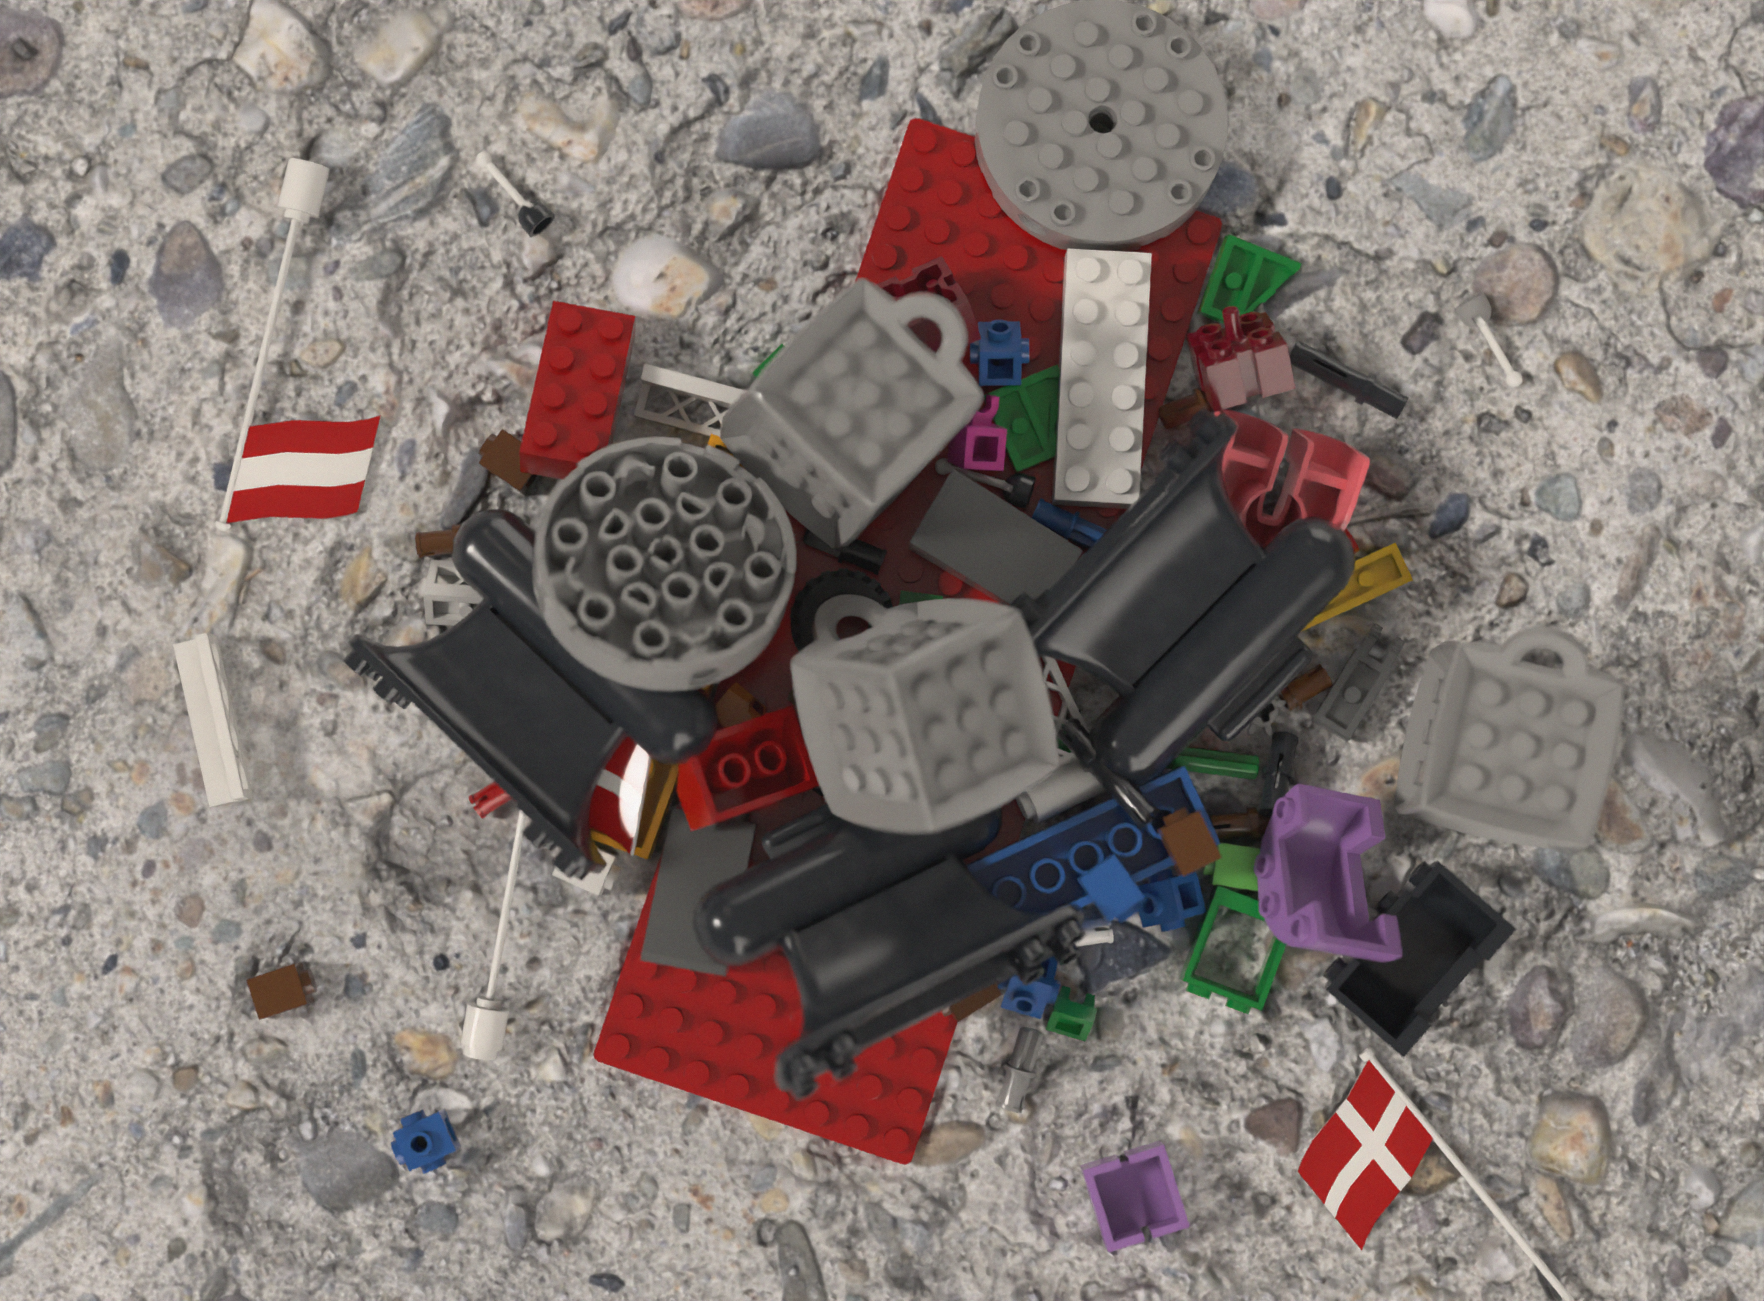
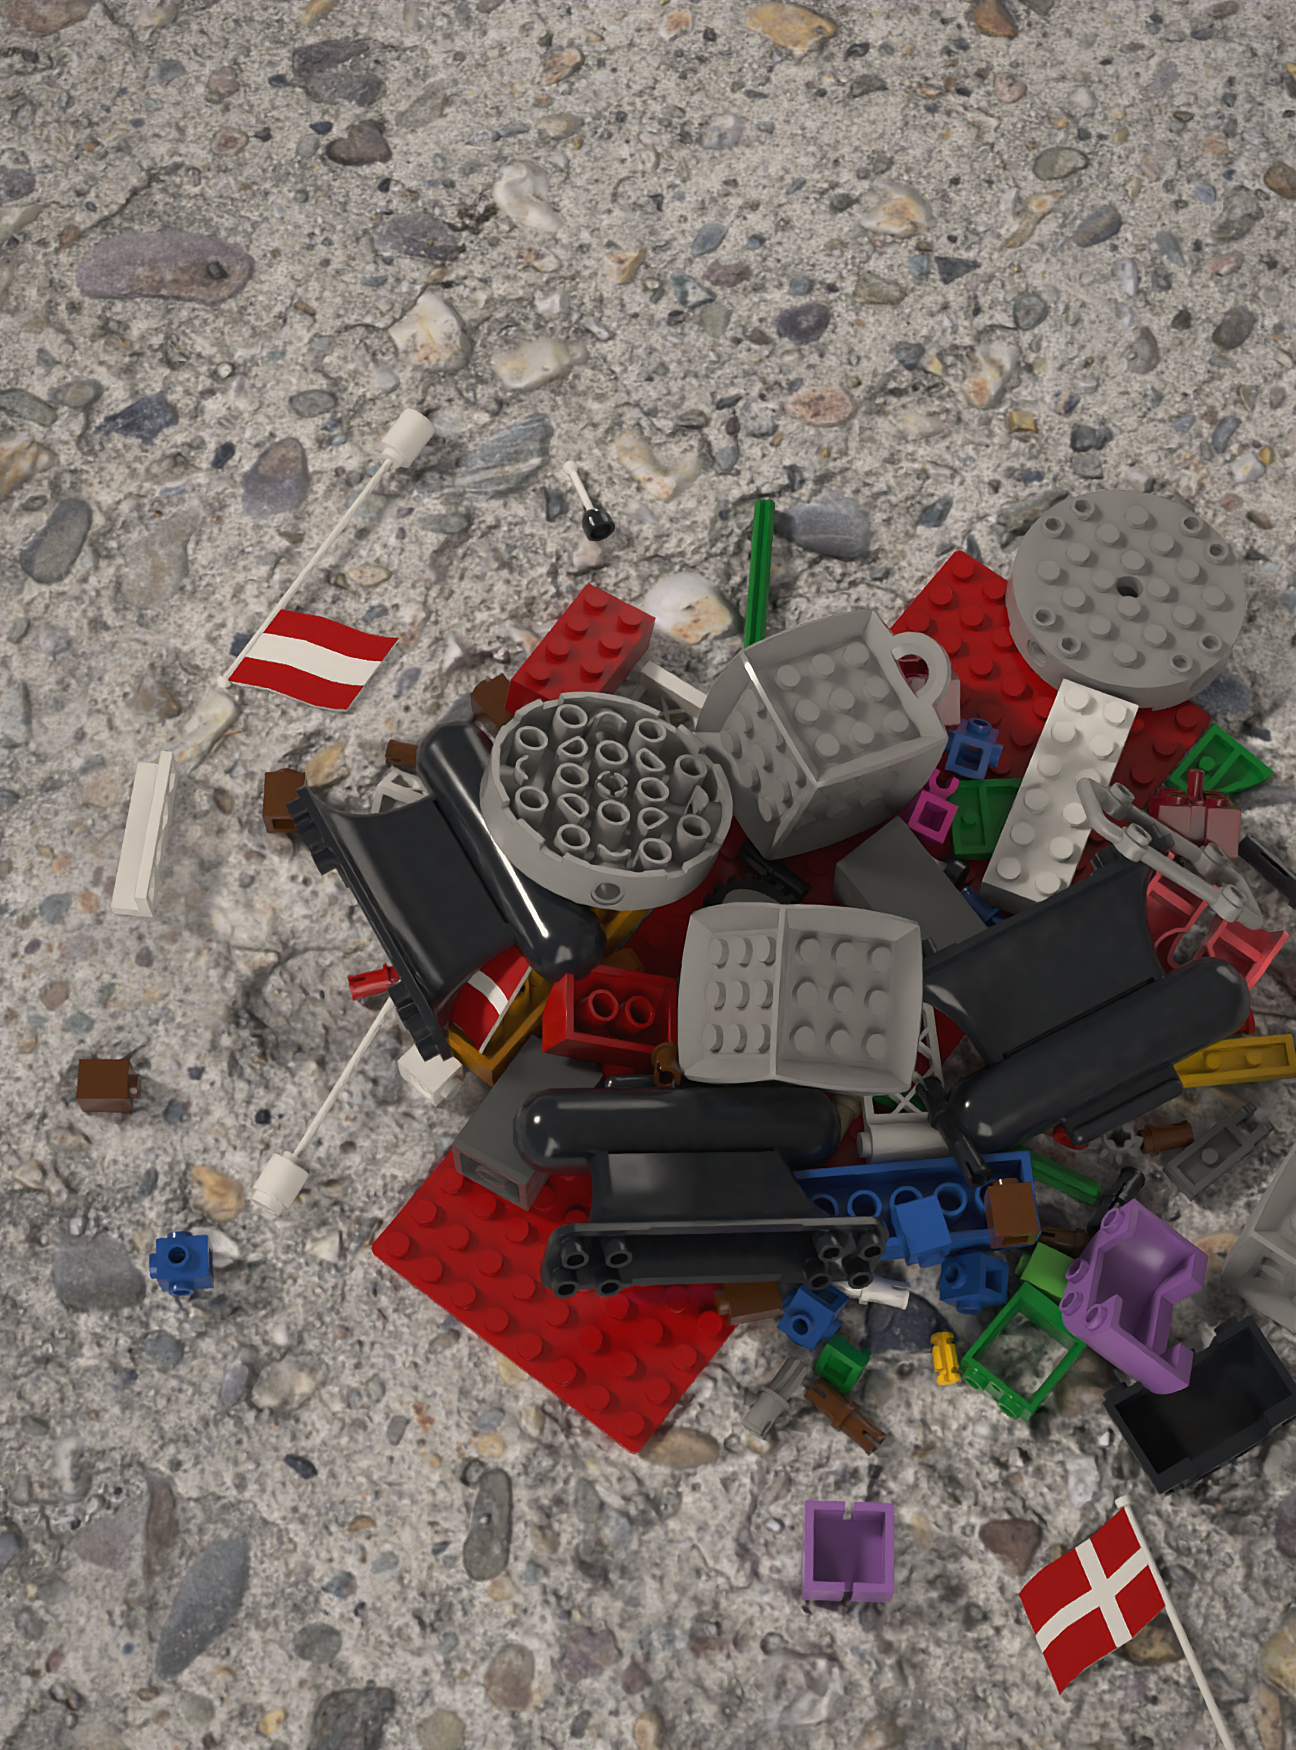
camera: 20 degrees right, 20 degrees down
(331, 633) = (278, 790): none -> reddish brown brick
(728, 248) = (759, 571): none -> green axle
(815, 806) = (666, 1064): none -> reddish brown pin
(1090, 1065) = (845, 1416): none -> reddish brown pin
(1164, 976) = (945, 1358): none -> yellow piece
(1201, 449) = (1231, 903): none -> light grey bar

